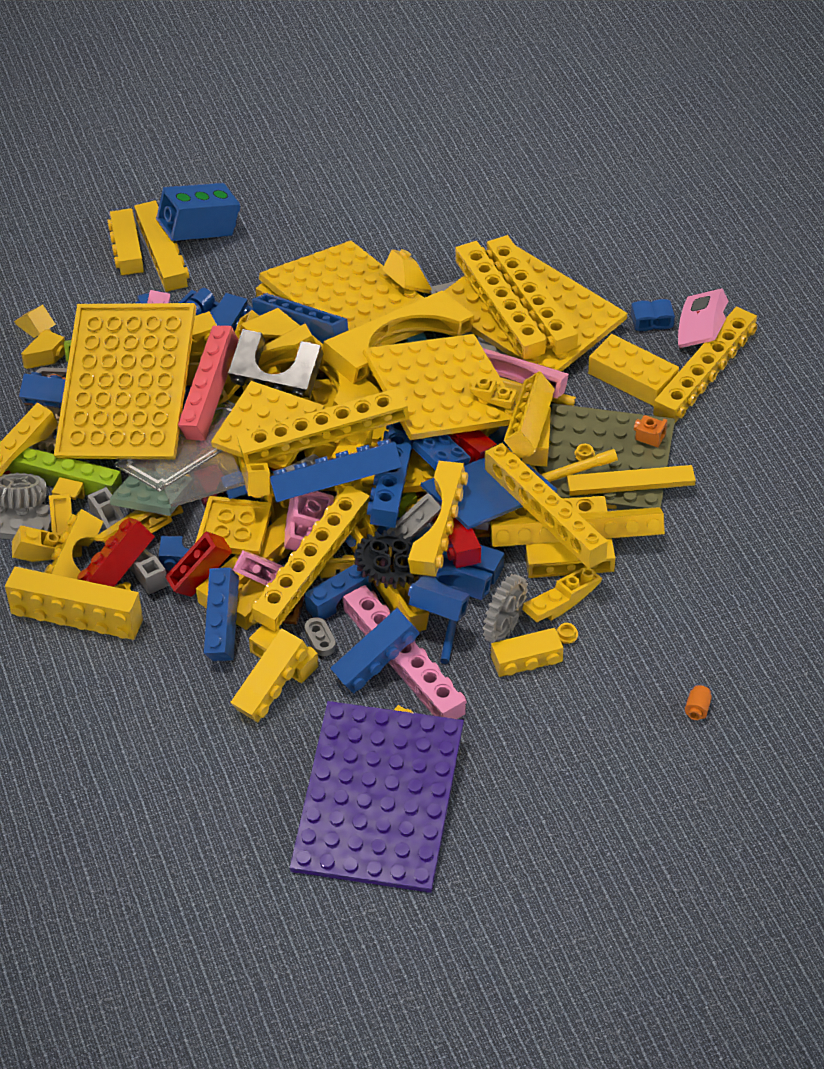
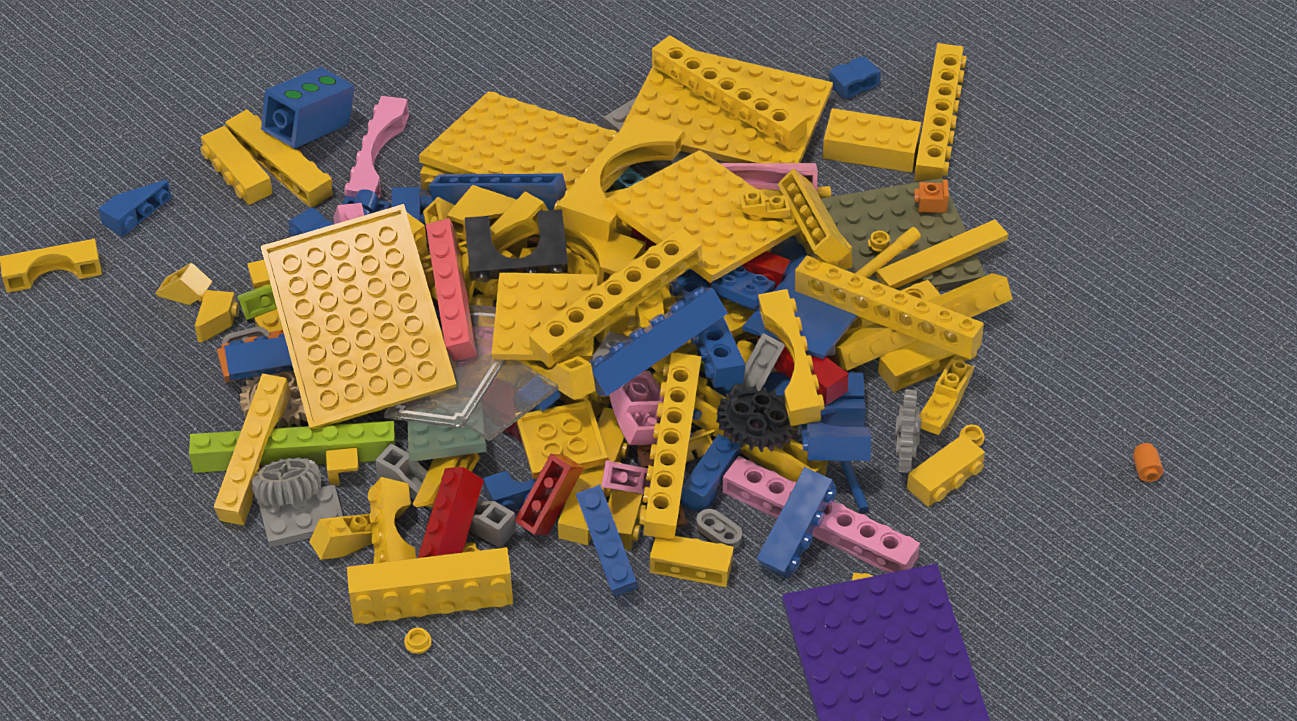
camera: 25 degrees left, 0 degrees up
(34, 250) = (132, 207): none -> blue slope
(46, 641) = (417, 641): none -> yellow plate
(60, 512) = (350, 491): yellow tile -> none
(260, 240) = (388, 120): none -> bright pink arch
(270, 675) = (699, 589): yellow brick -> none
(406, 271) = (576, 105): yellow slope -> none
(501, 300) = (700, 107): yellow brick -> none
(702, 318) = (911, 65): bright pink slope -> none

